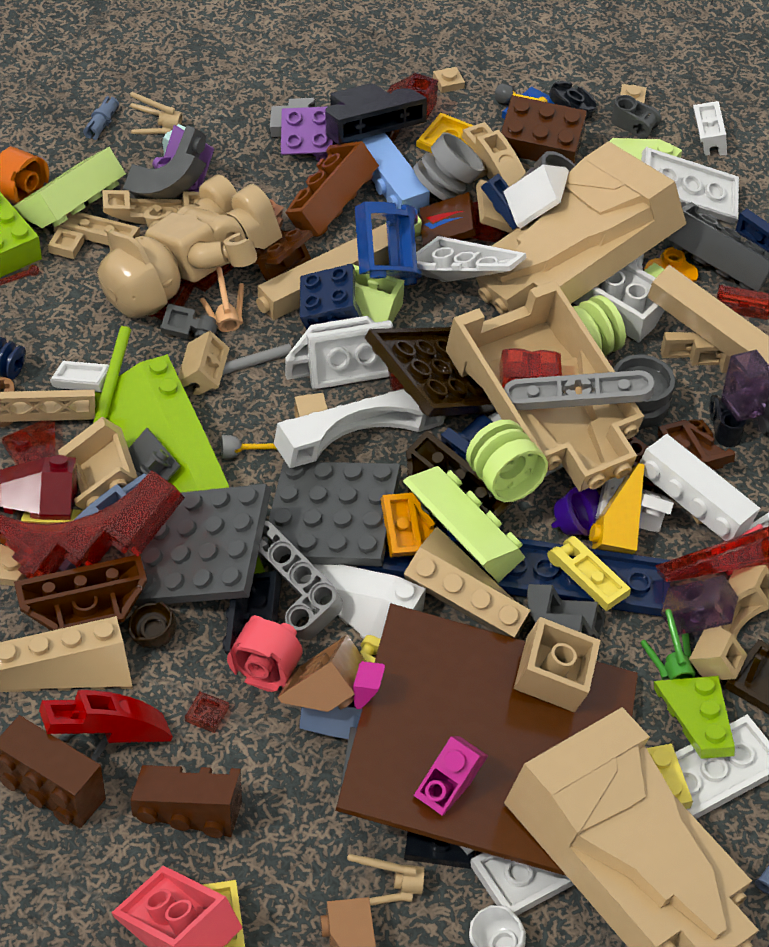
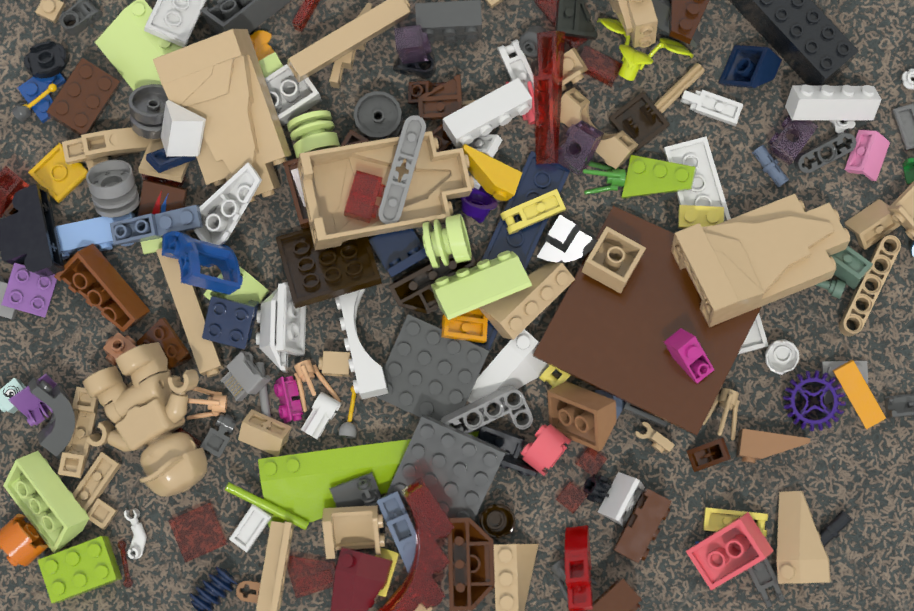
camera: 65 degrees left, 30 degrees up
(47, 283) = (139, 536): none -> white arm
(64, 333) = (198, 532): none -> clear red tile
(220, 759) = (621, 499): none -> white slope
(227, 733) = (597, 488): none -> black gear
(242, 384) = (285, 390): none -> dark pink hinge
(248, 417) = (322, 412): none -> white piece
(265, 725) = (591, 461): none -> clear red tile
(269, 332) = (244, 376): none -> light grey piece
(288, 391) = (305, 372): none -> light nougat plant
(317, 800) = (659, 443): none -> tan plate
(319, 872) = (708, 454): none -> reddish brown slope
(367, 682) = (609, 388): dark pink slope -> none
(431, 224) = (155, 225): none -> sand blue slope

